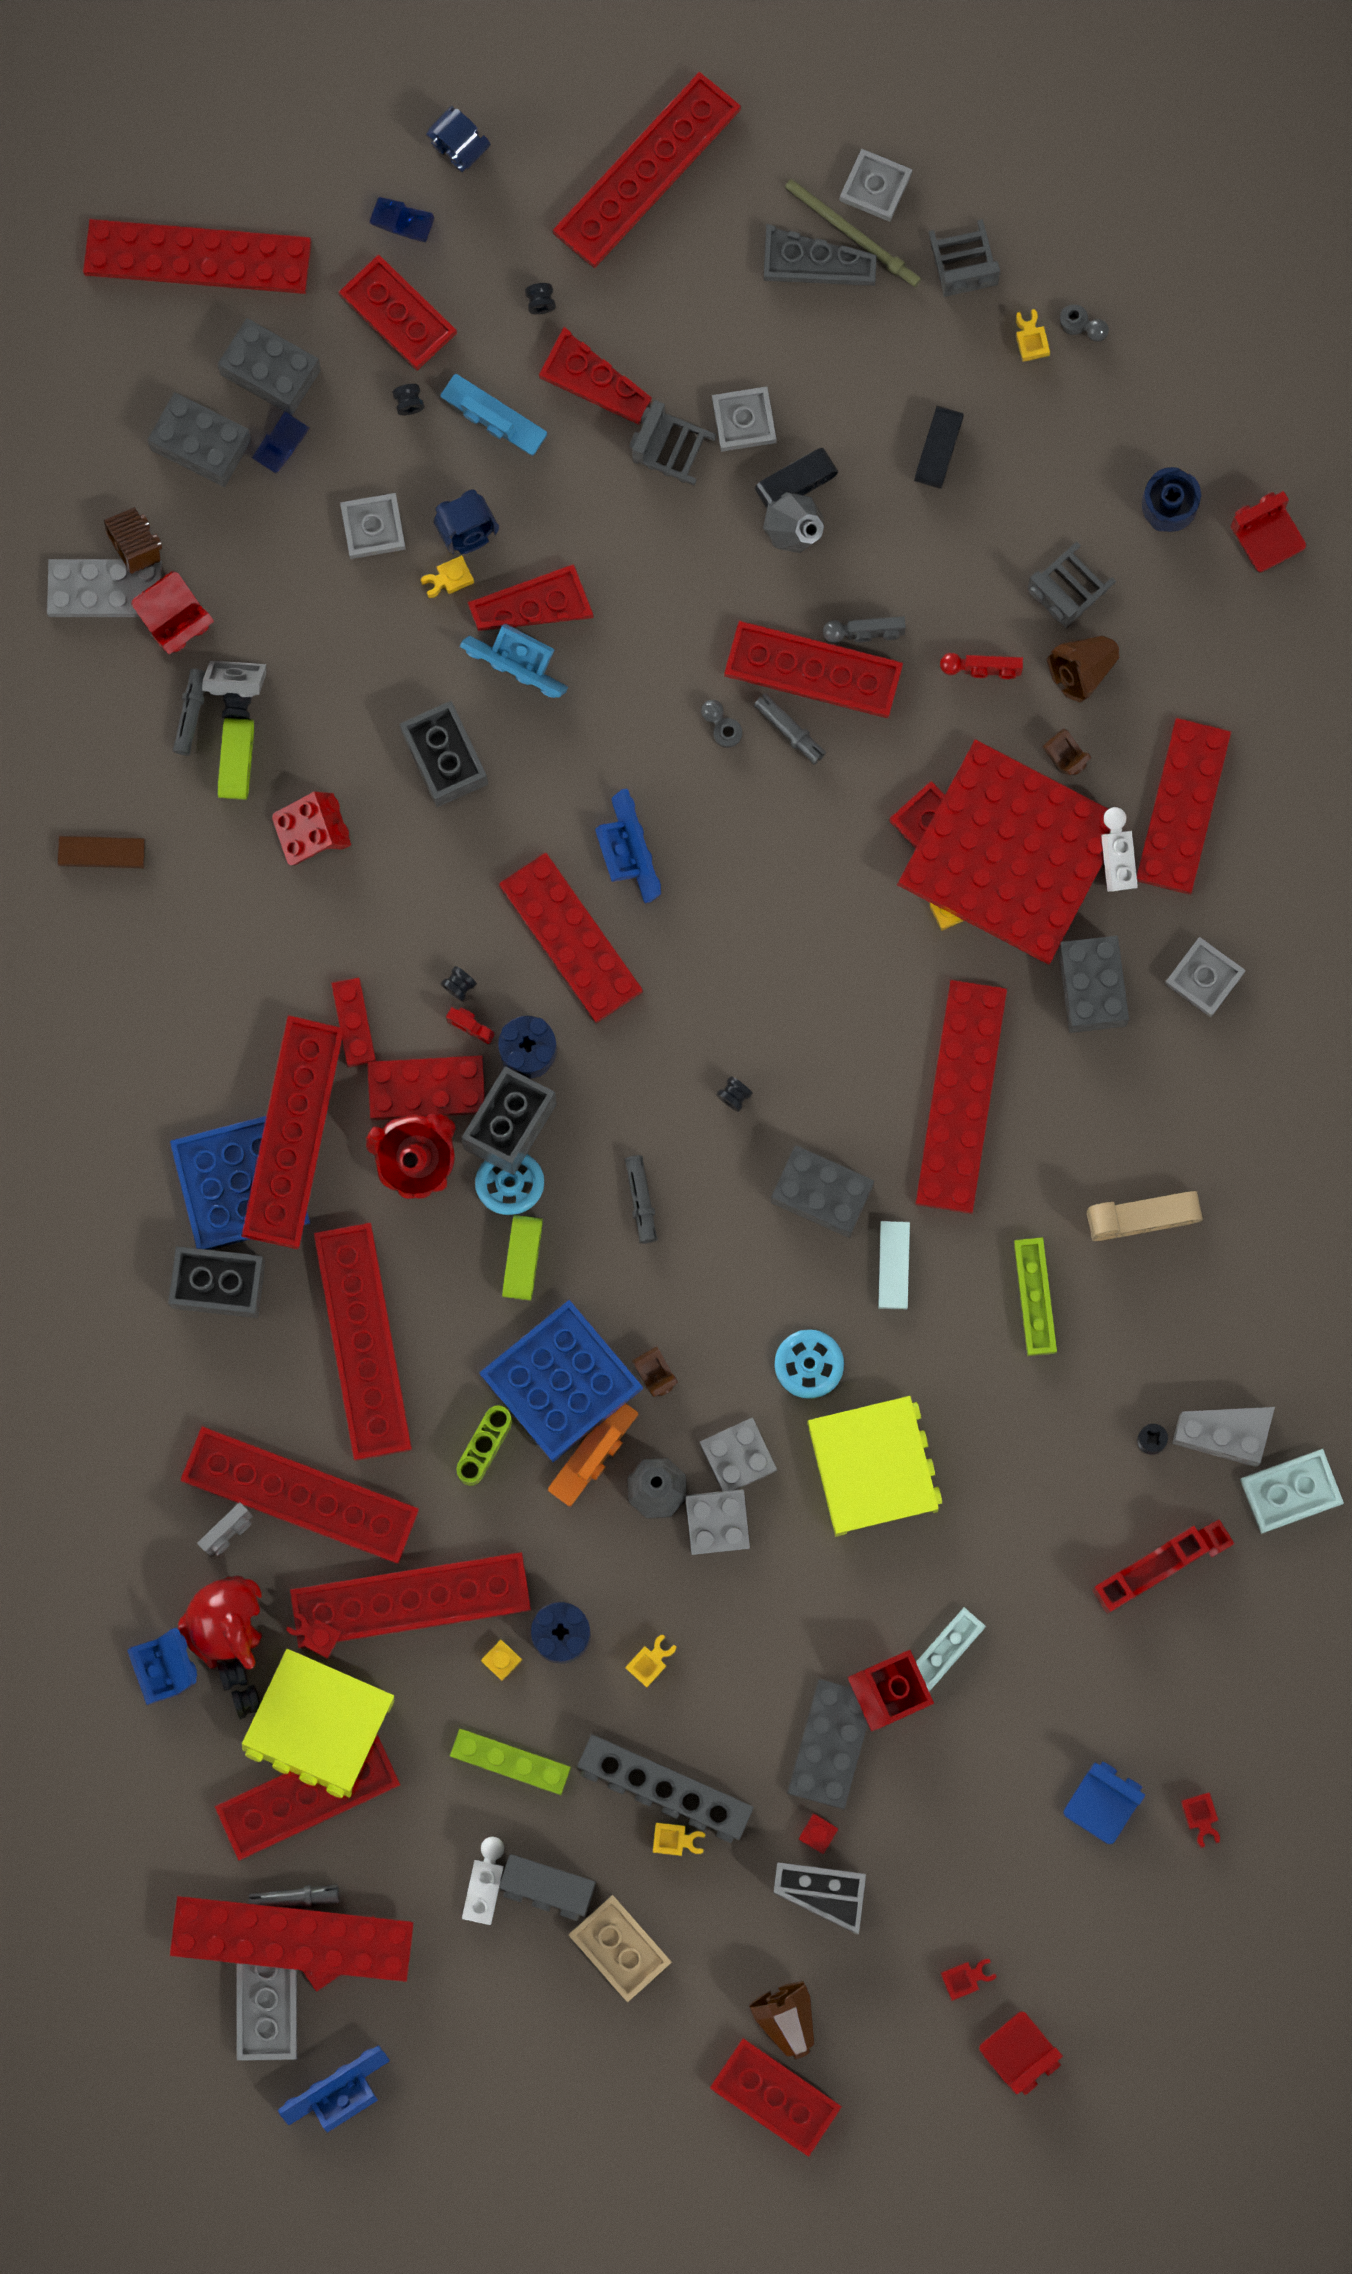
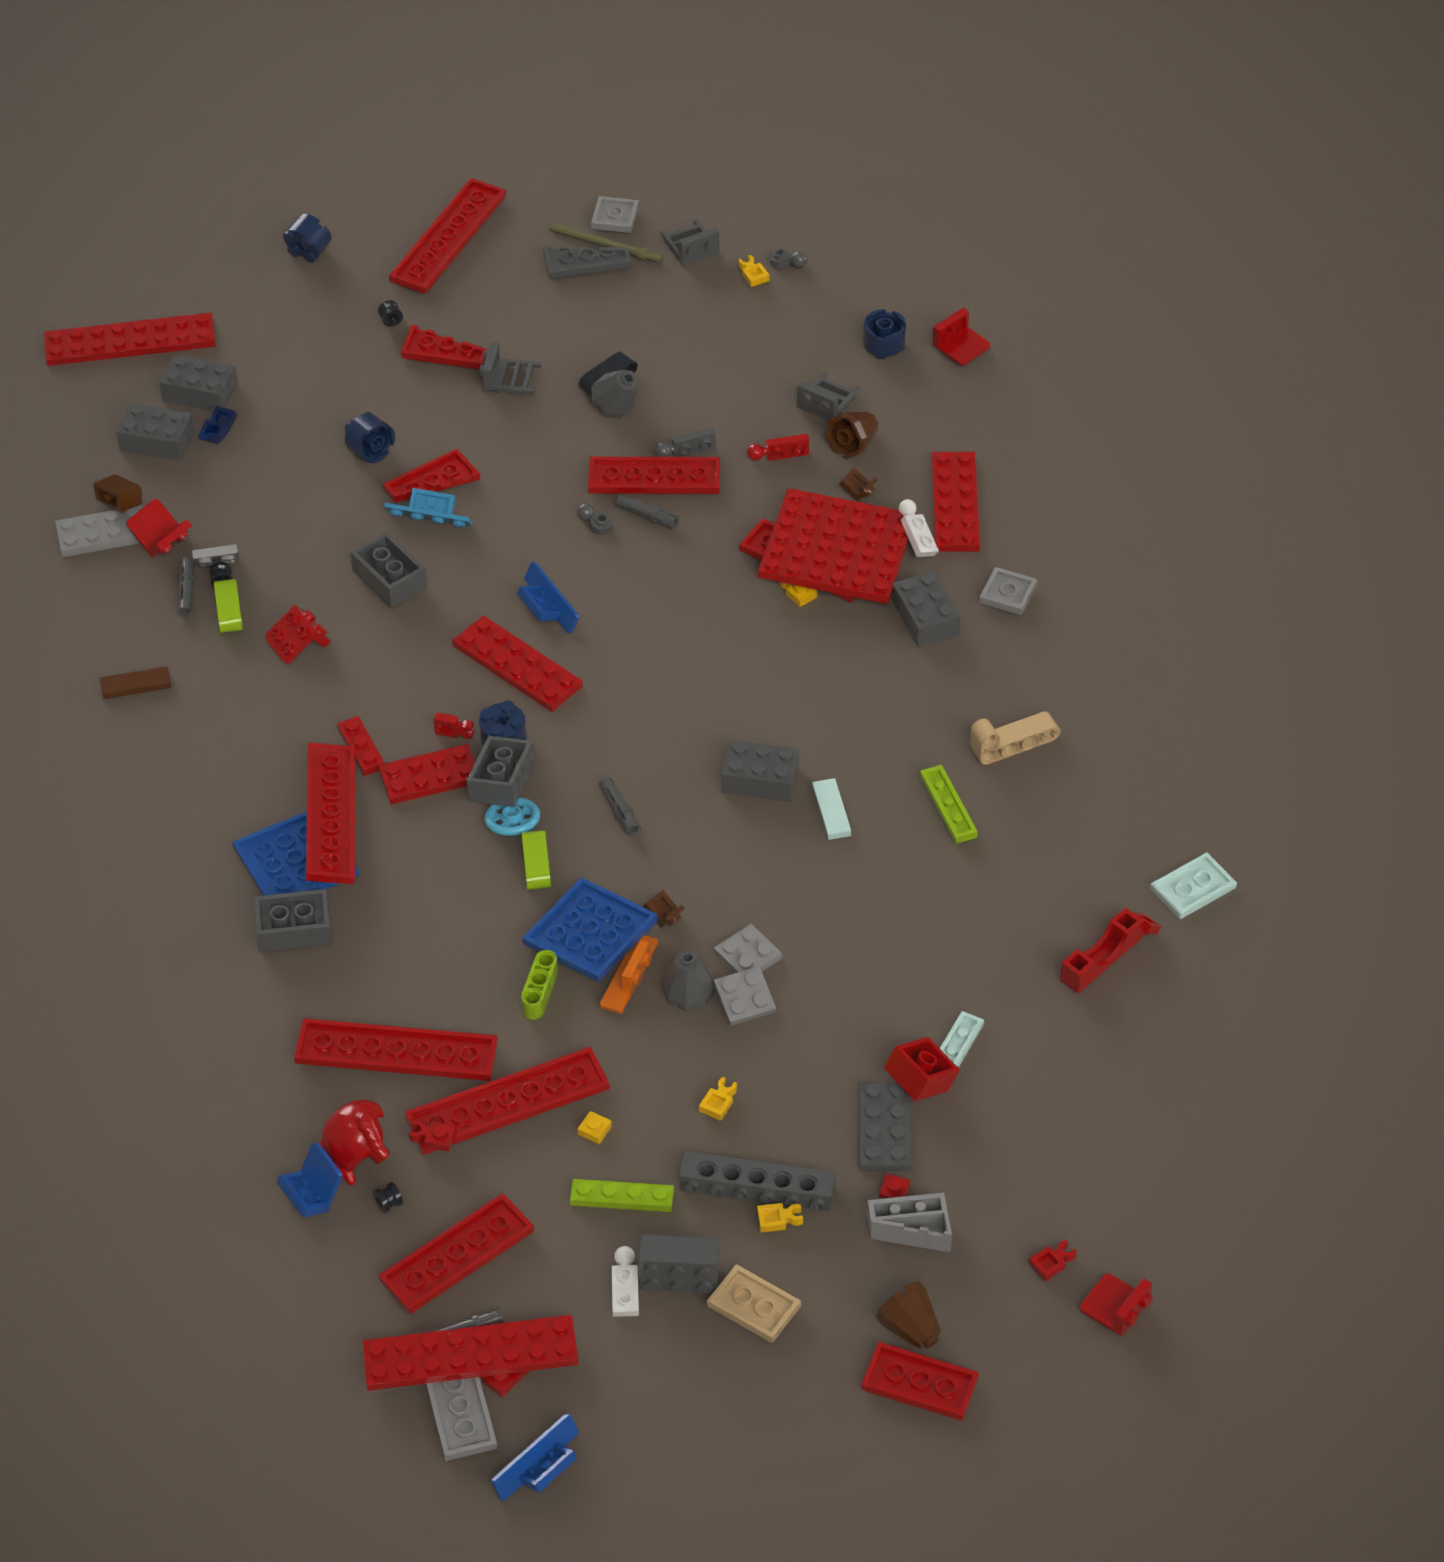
camera: 15 degrees left, 30 degrees down
(217, 1538) = (340, 1077): light grey plate -> none
(232, 1674) = (370, 1180): black wheel -> none
(316, 1723) = (451, 1194): neon yellow panel -> none
(362, 1341) = (422, 940): red plate -> none
(372, 526) = (299, 457): light grey plate -> none
(397, 312) = (286, 340): red plate -> none
(401, 220) = (272, 293): clear blue slope -> none
(408, 399) = (307, 383): black wheel -> none
(414, 1154) = (430, 803): red piece -> none
(452, 576) = (364, 476): yellow plate -> none
(458, 983) = (438, 702): black wheel -> none
(493, 414) = (373, 381): dark azure bracket -> none
(574, 1643) = (638, 1092): dark blue brick -> none
(734, 1094) = (673, 727): black wheel -> none
(744, 419) = (559, 350): light grey plate -> none
(823, 1384) = (781, 867): medium azure plate -> none
(874, 1465) = (856, 930): neon yellow panel -> none
(939, 447) = (706, 339): black beam -> none
(961, 1097) = (849, 699): red plate -> none
(1104, 1802) = (1122, 1111): blue bracket -> none
(1148, 1443) = (1076, 876): black wheel -> none
(1200, 1814) = (1204, 1107): red plate -> none
(1226, 1433) = (1127, 855): light grey wedge -> none

